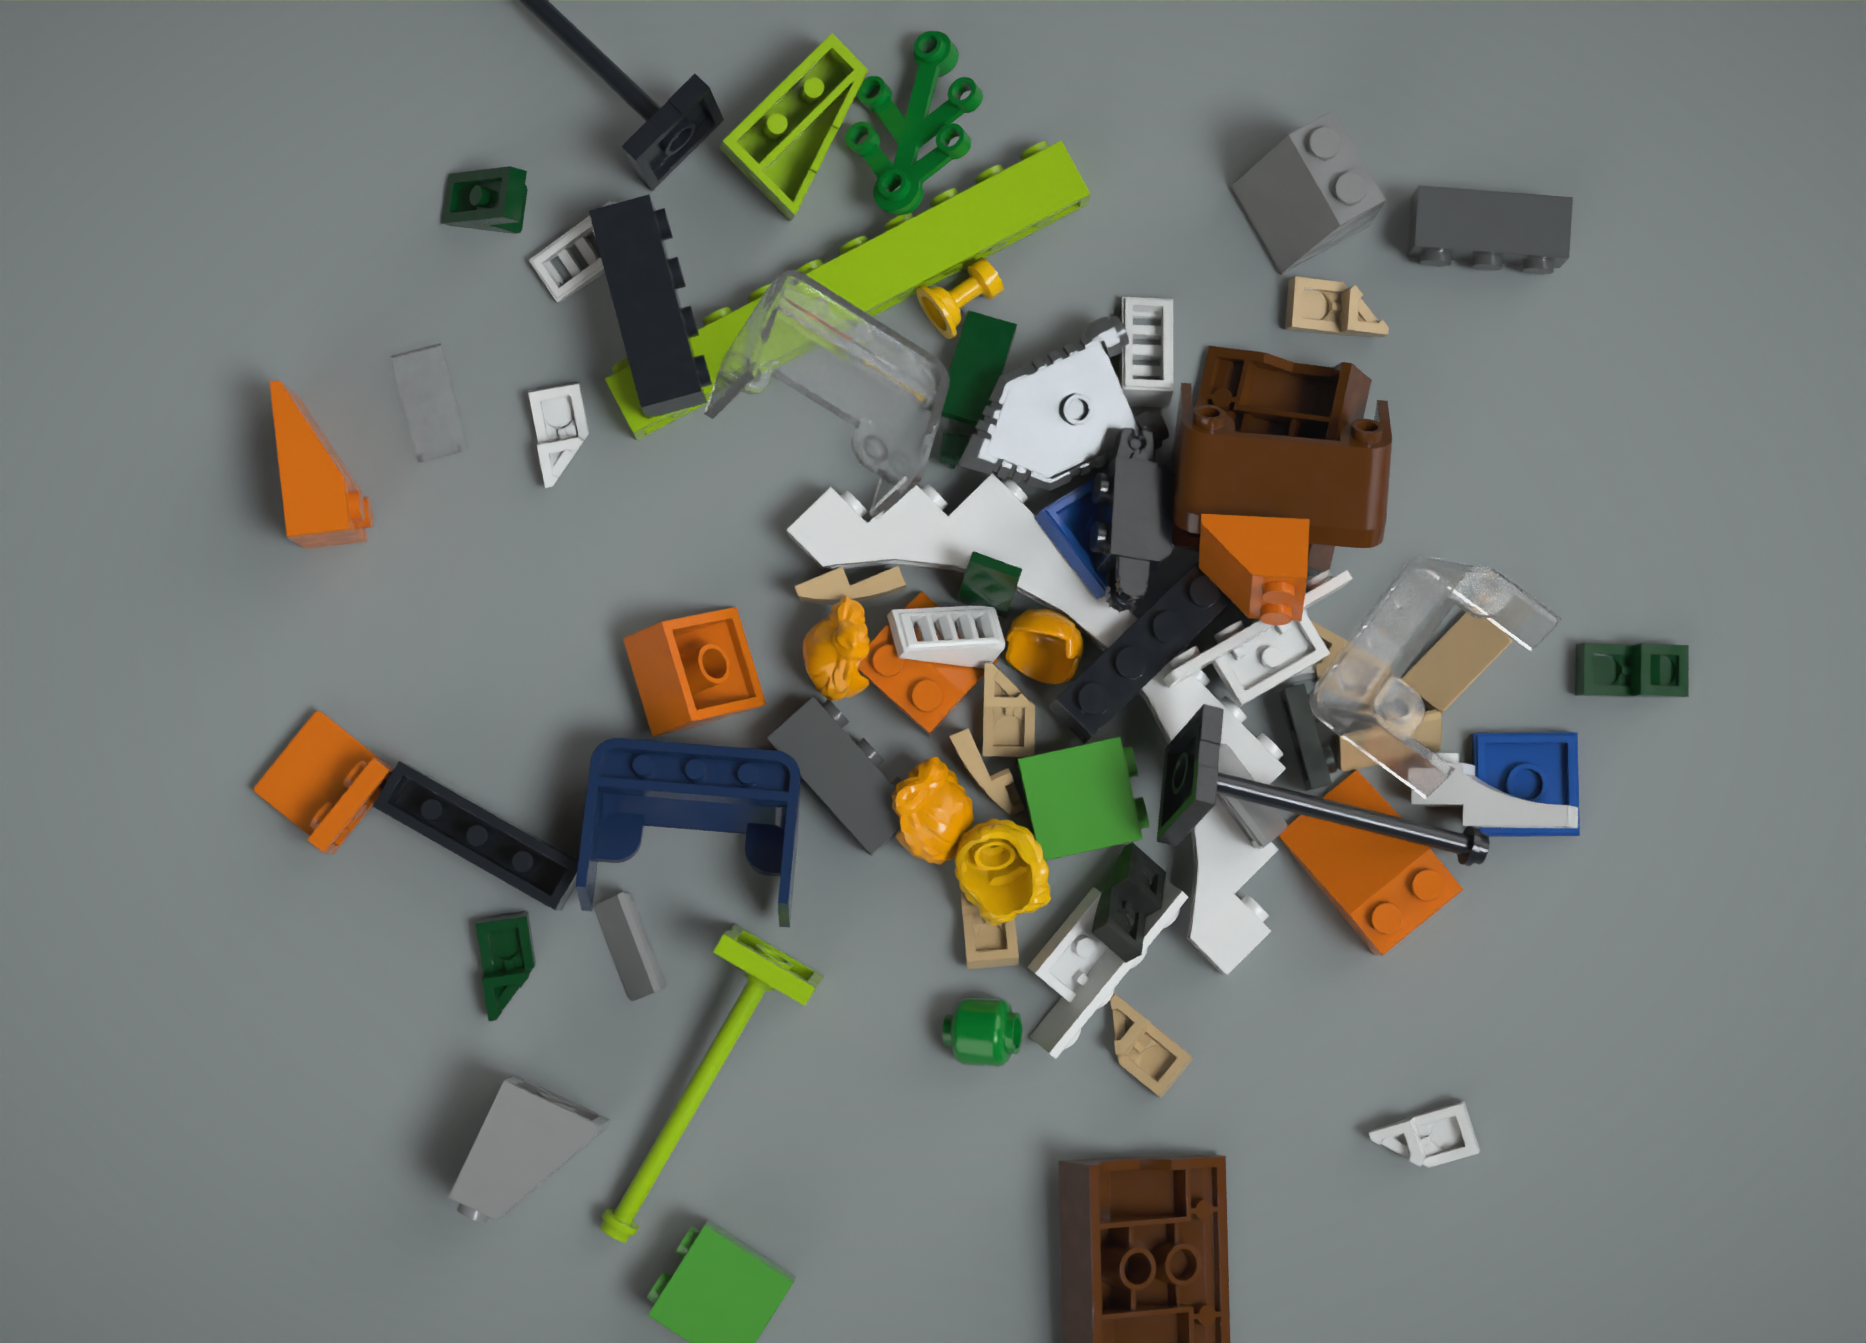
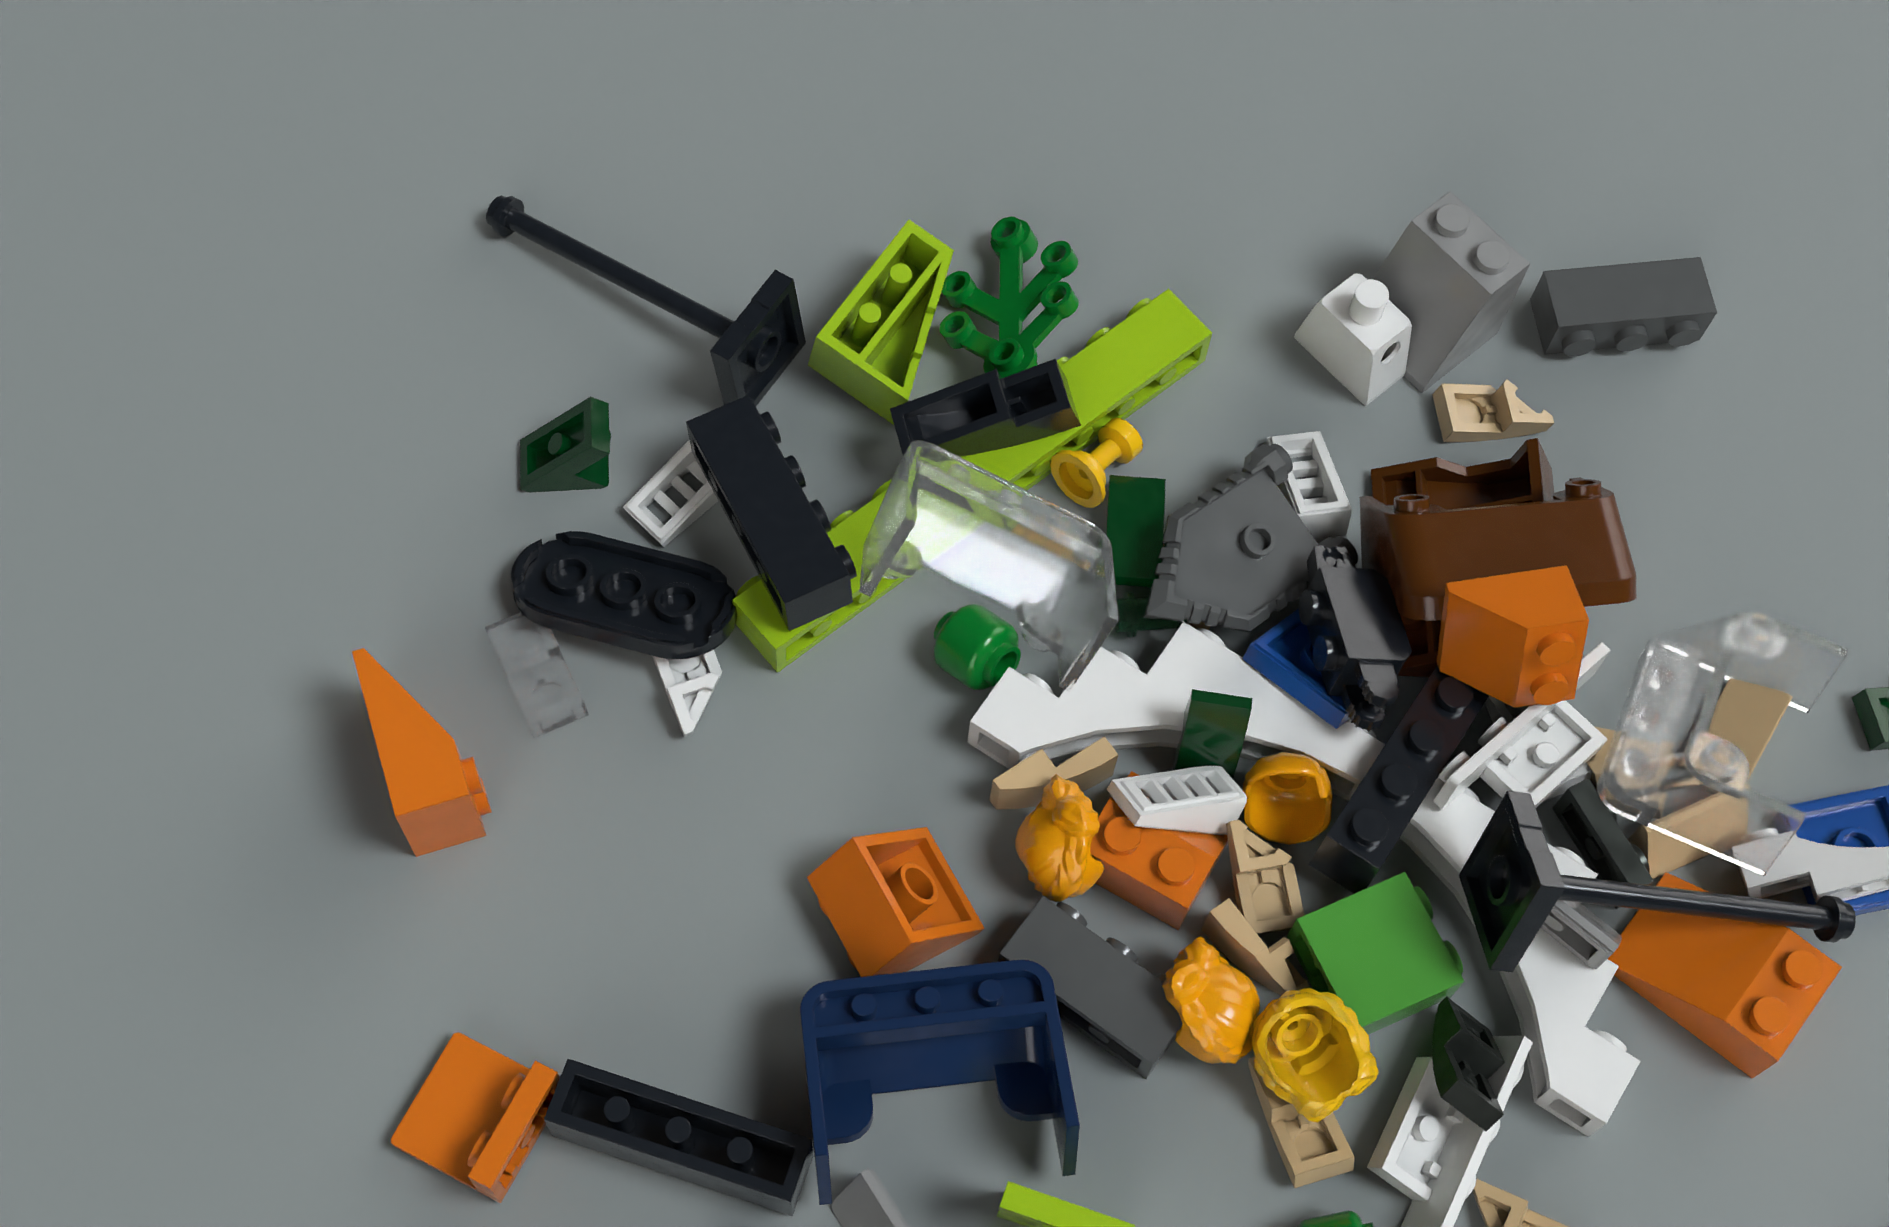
camera: 15 degrees left, 20 degrees down
(514, 349) = (624, 595): none -> black tile
(810, 456) = (975, 646): none -> green head
(861, 246) = (990, 411): none -> black slope
(1227, 220) = (1358, 337): none -> white torso

